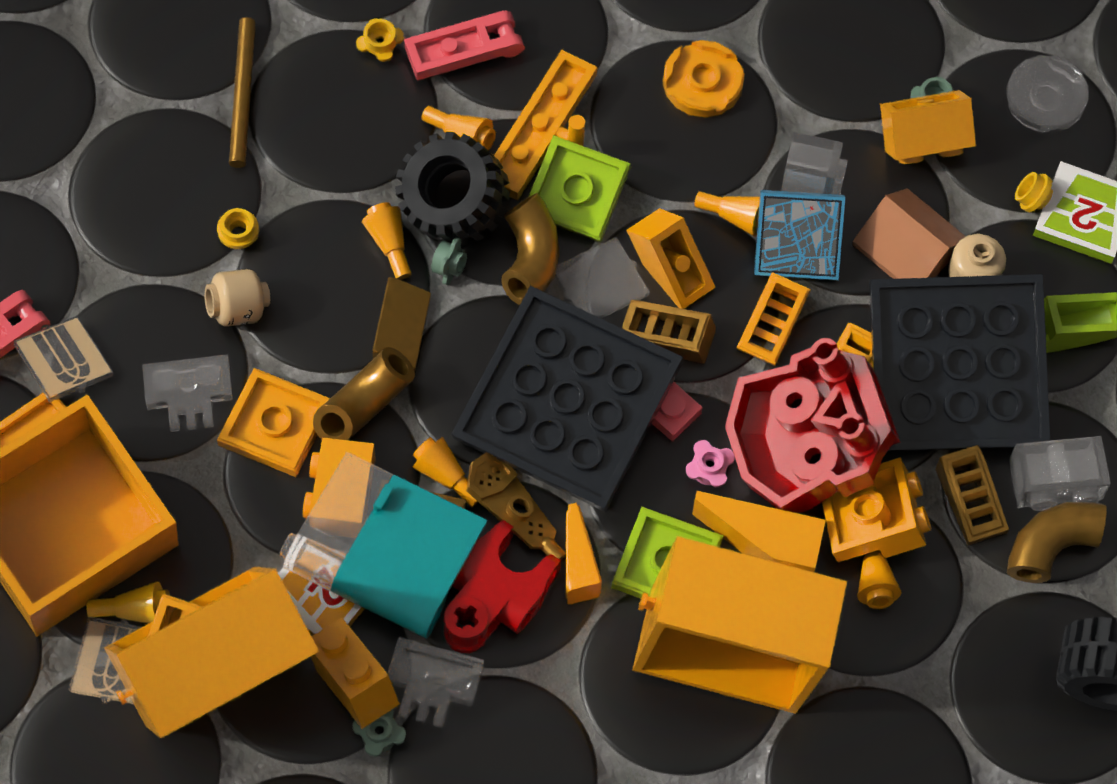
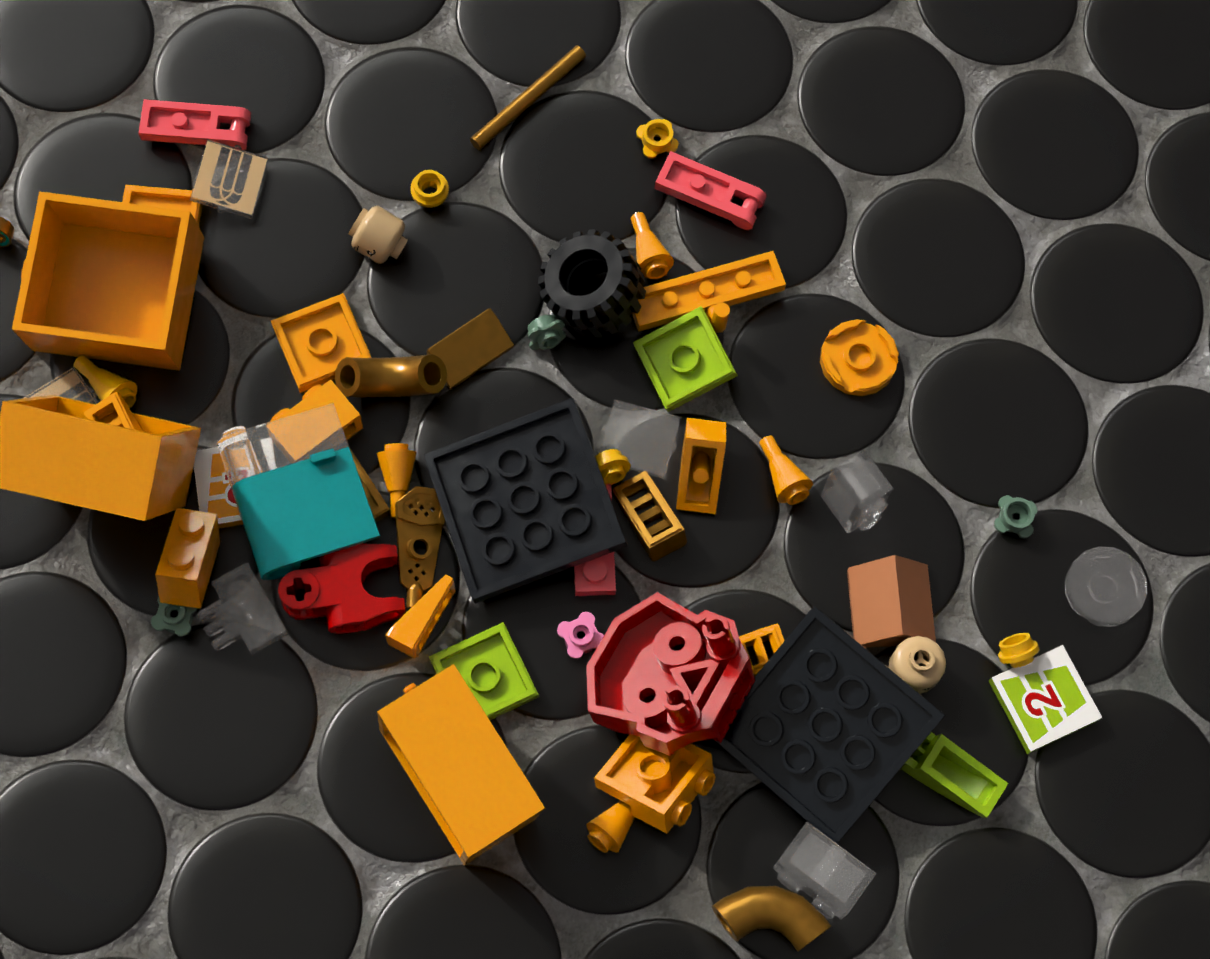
camera: 40 degrees right, 5 degrees up
(188, 388) = (288, 270): clear hinge -> none
(386, 229) = (522, 281): light orange cone -> none
(536, 248) = (613, 377): pearl gold cylinder -> none
(608, 311) = (613, 465): none -> yellow plate
(762, 530) = (570, 733): light orange slope -> none
(787, 289) = (726, 559): light orange slope -> none
(799, 234) = (806, 528): tile -> none
(928, 126) = (984, 532): light orange brick -> none
(951, 483) = (758, 795): pearl gold slope -> none

